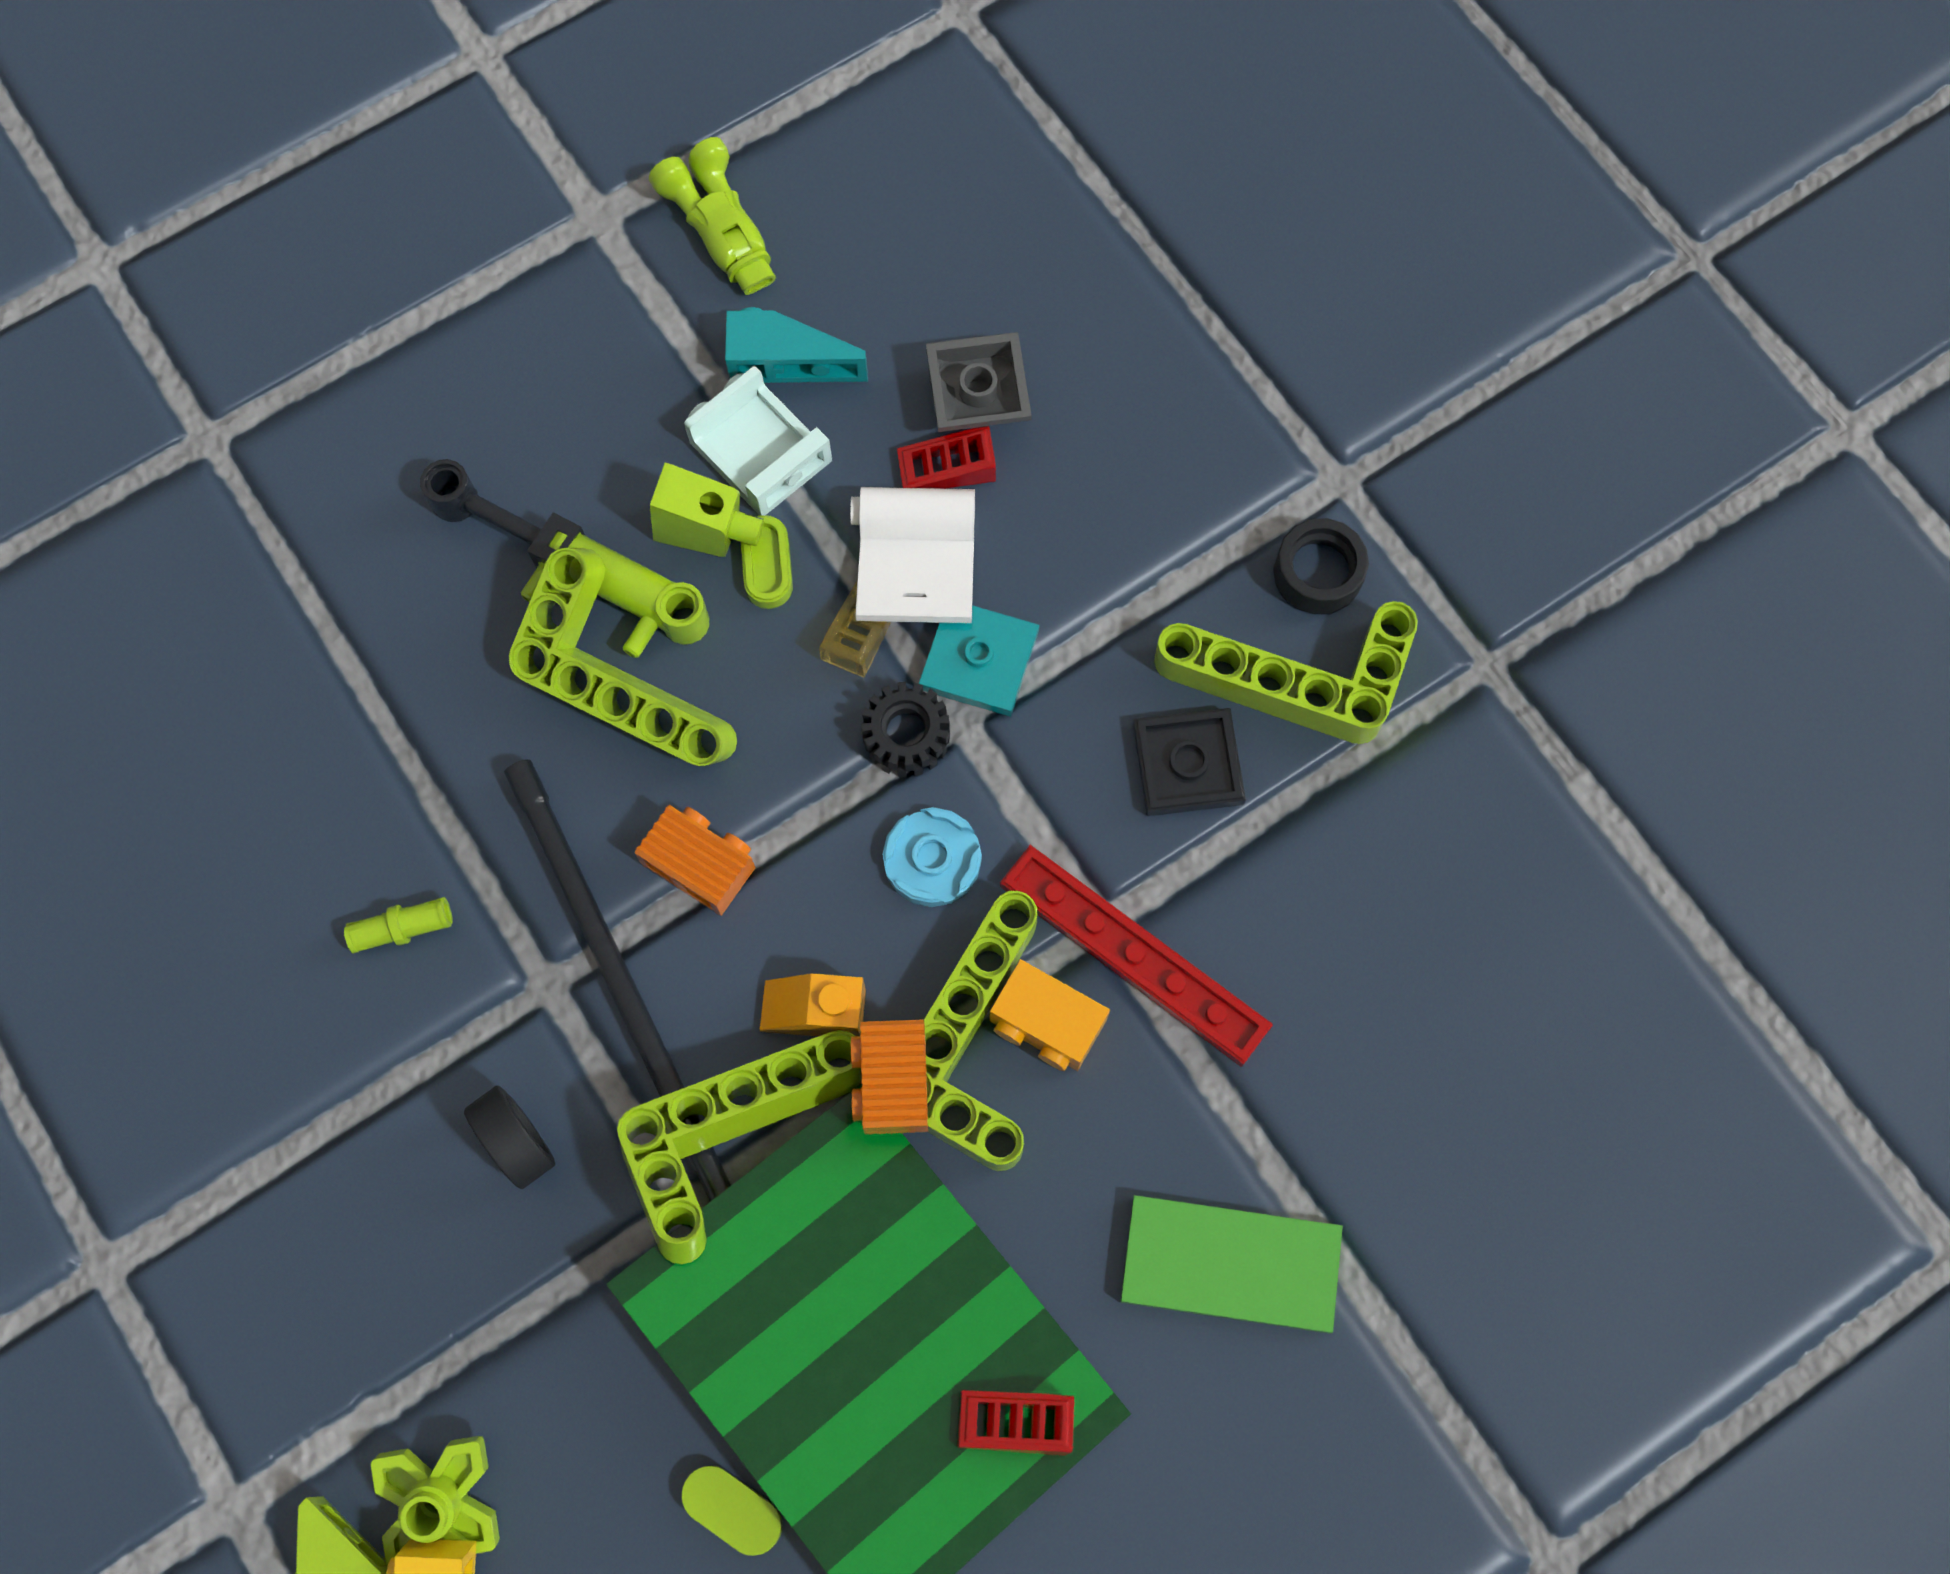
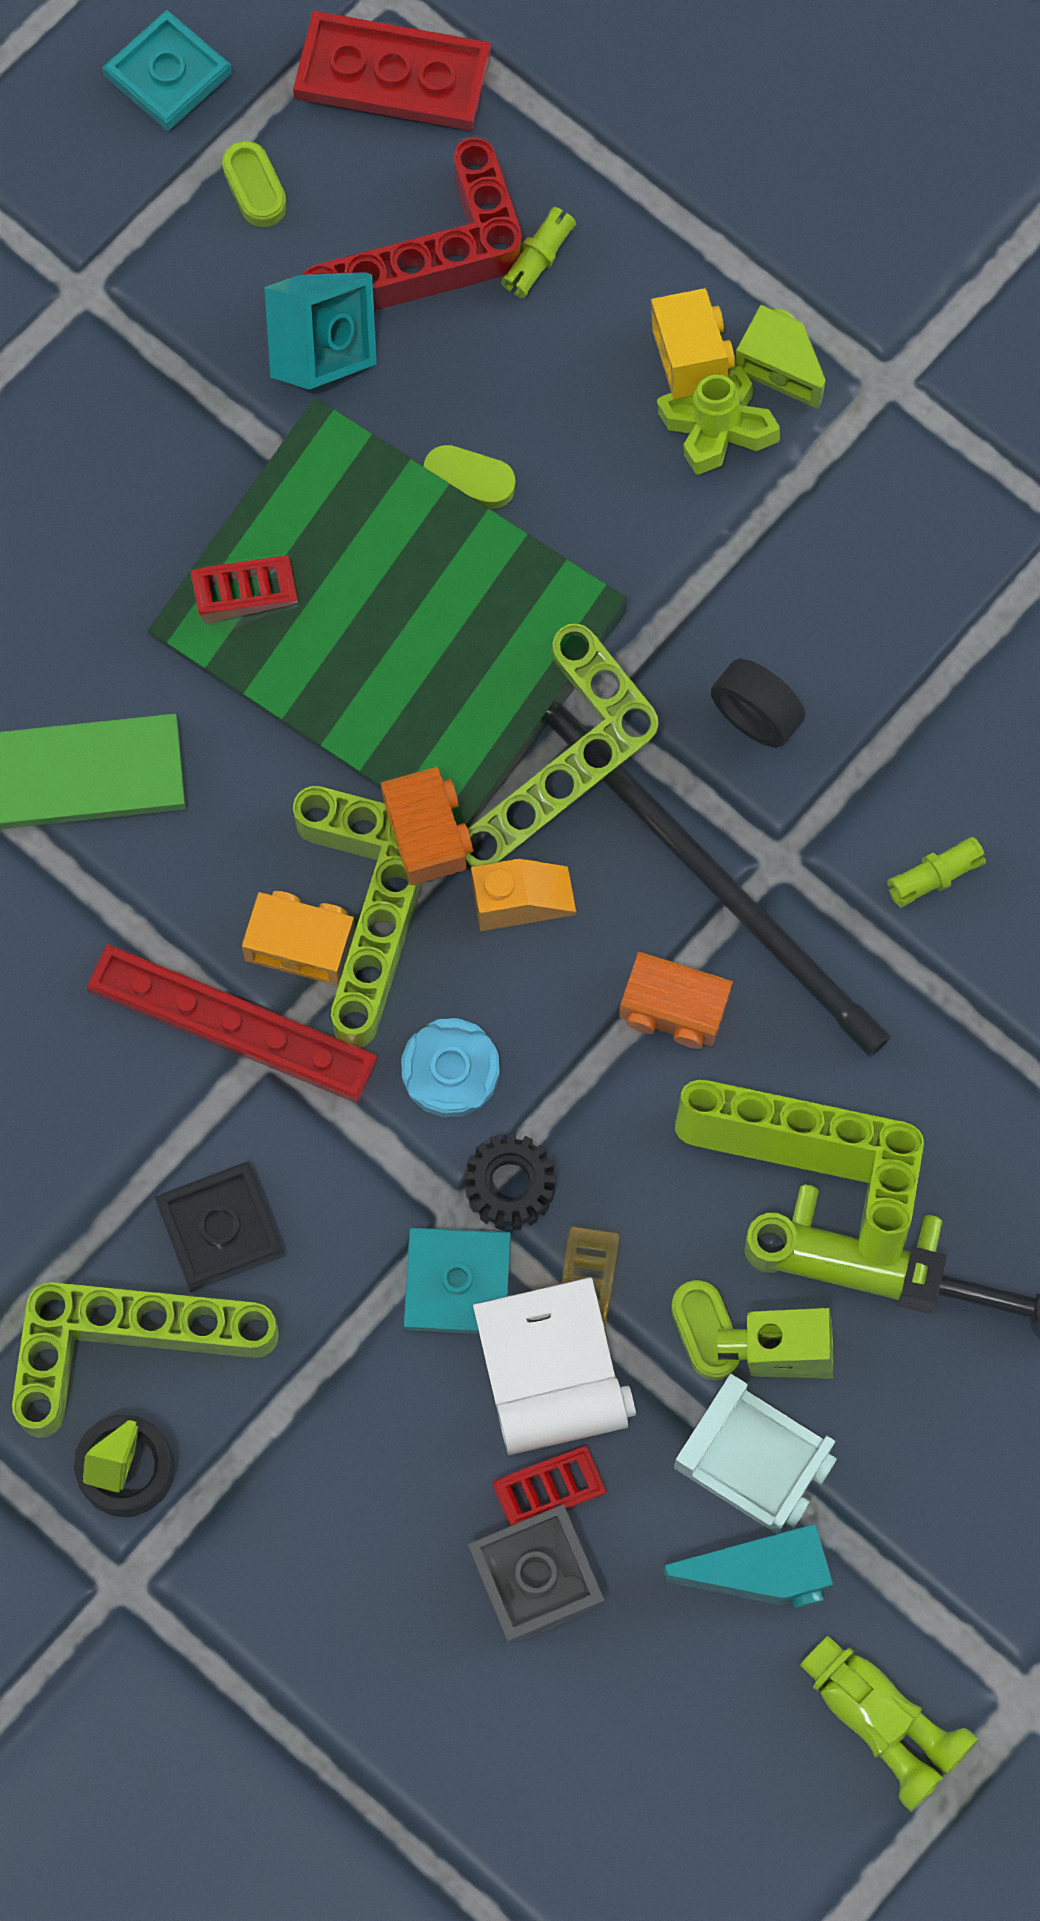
camera: 165 degrees right, 0 degrees up
(1330, 553) = (110, 1460): none -> lime slope

